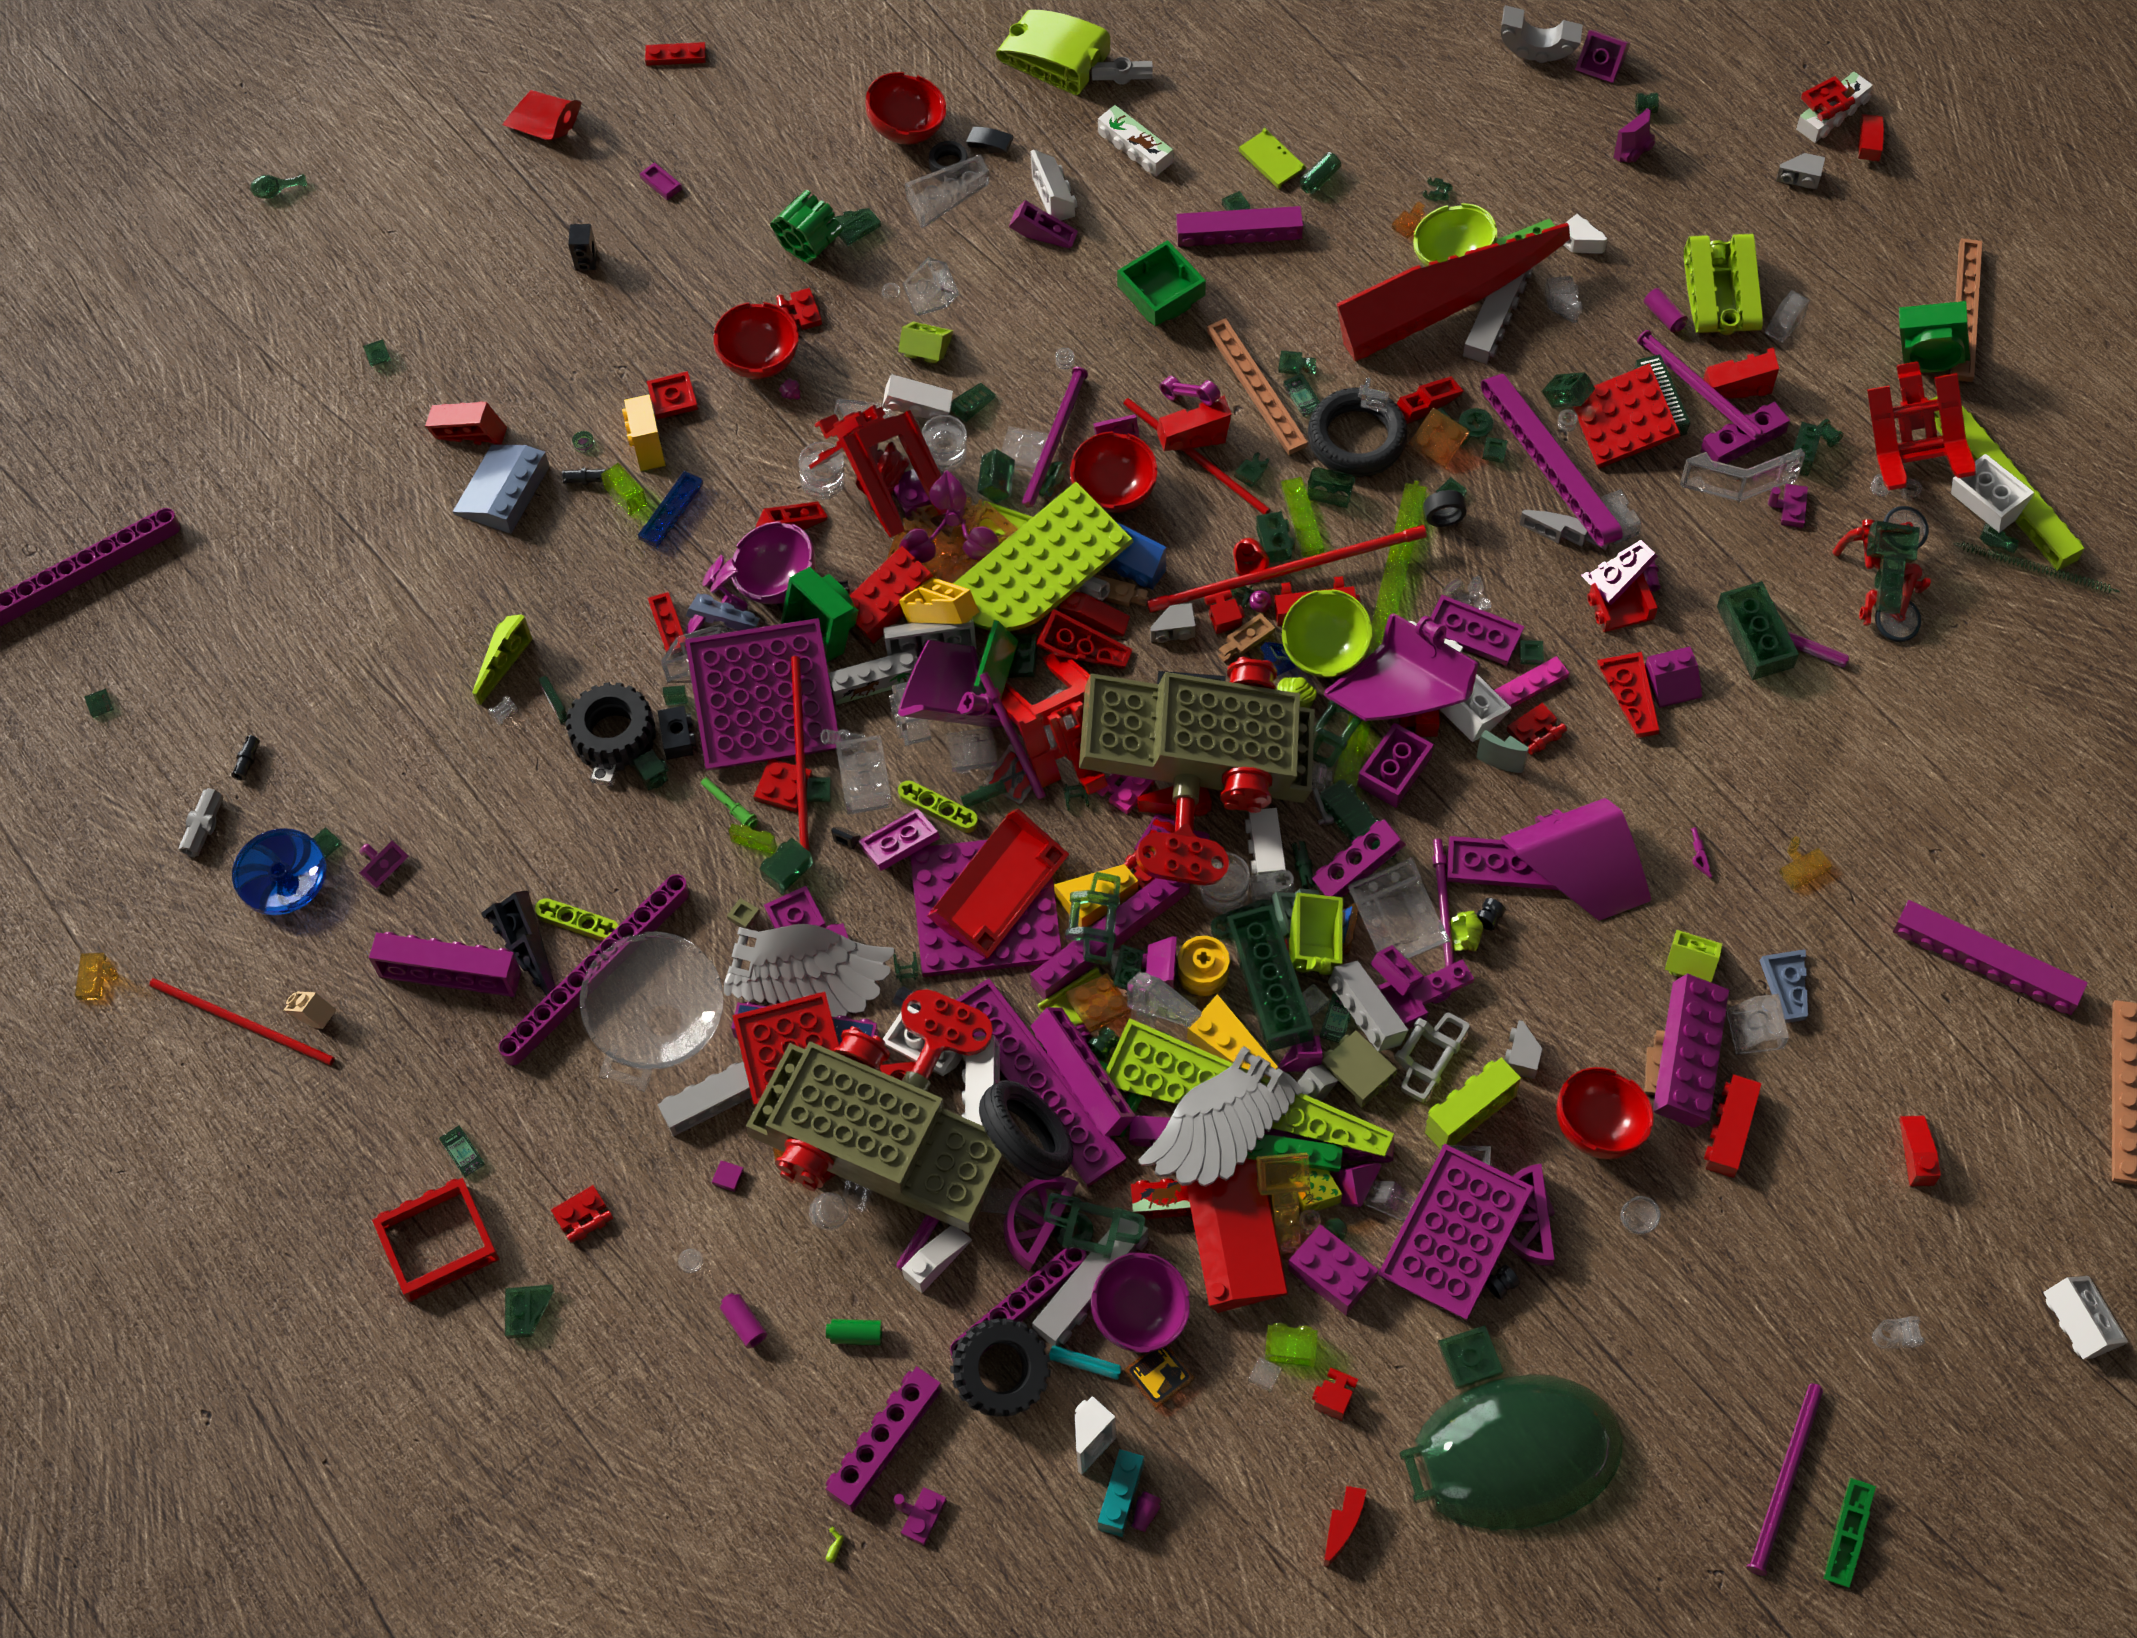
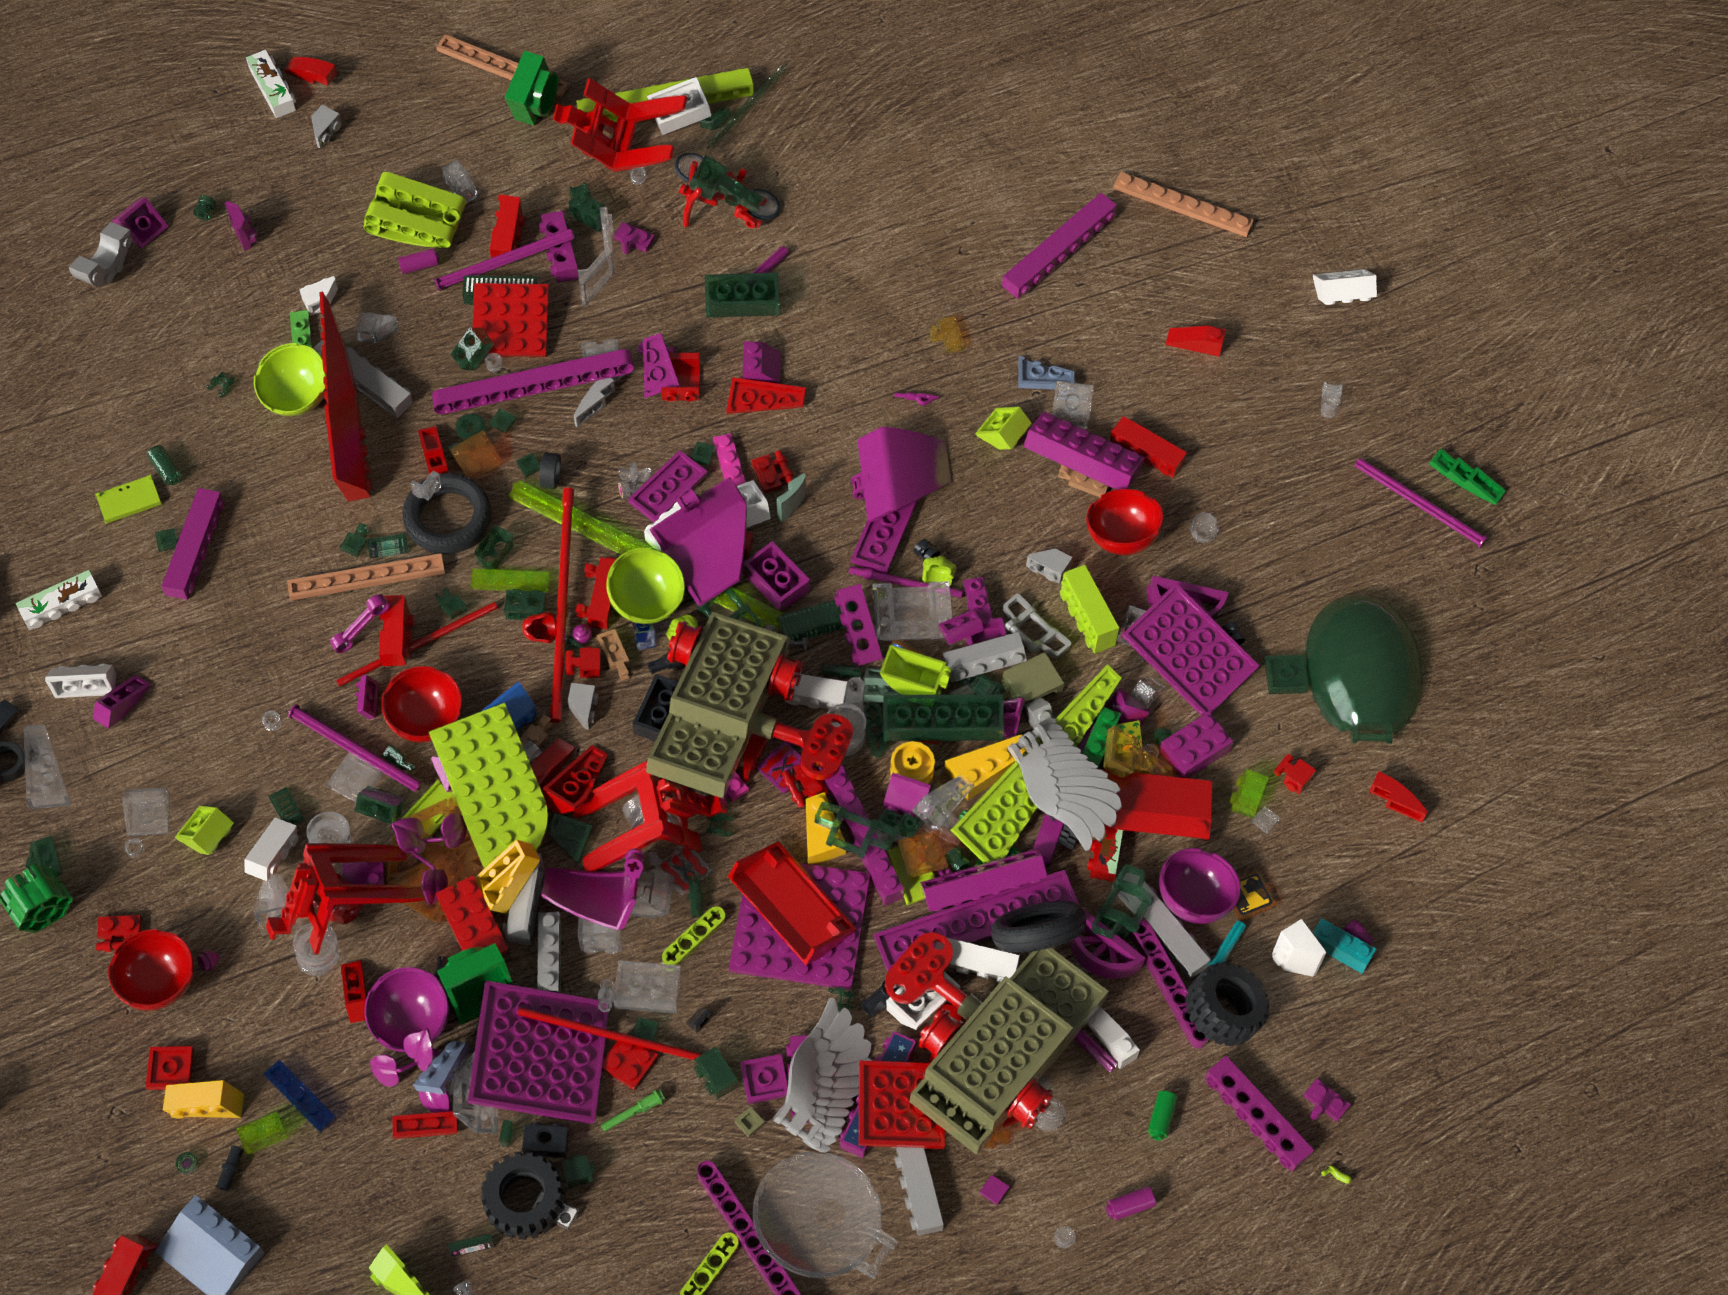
camera: 80 degrees left, 0 degrees up
(758, 840) = (682, 1089): clear neon green plate -> none
(899, 839) = (720, 973): magenta plate -> none
(996, 658) = (584, 855): green slope -> none
(1012, 735) = (620, 851): magenta bar -> none
(1161, 283) = (233, 617): green container -> none
(1407, 222) = (244, 416): clear orange plate -> none
(1825, 93) = (262, 81): red plate -> none

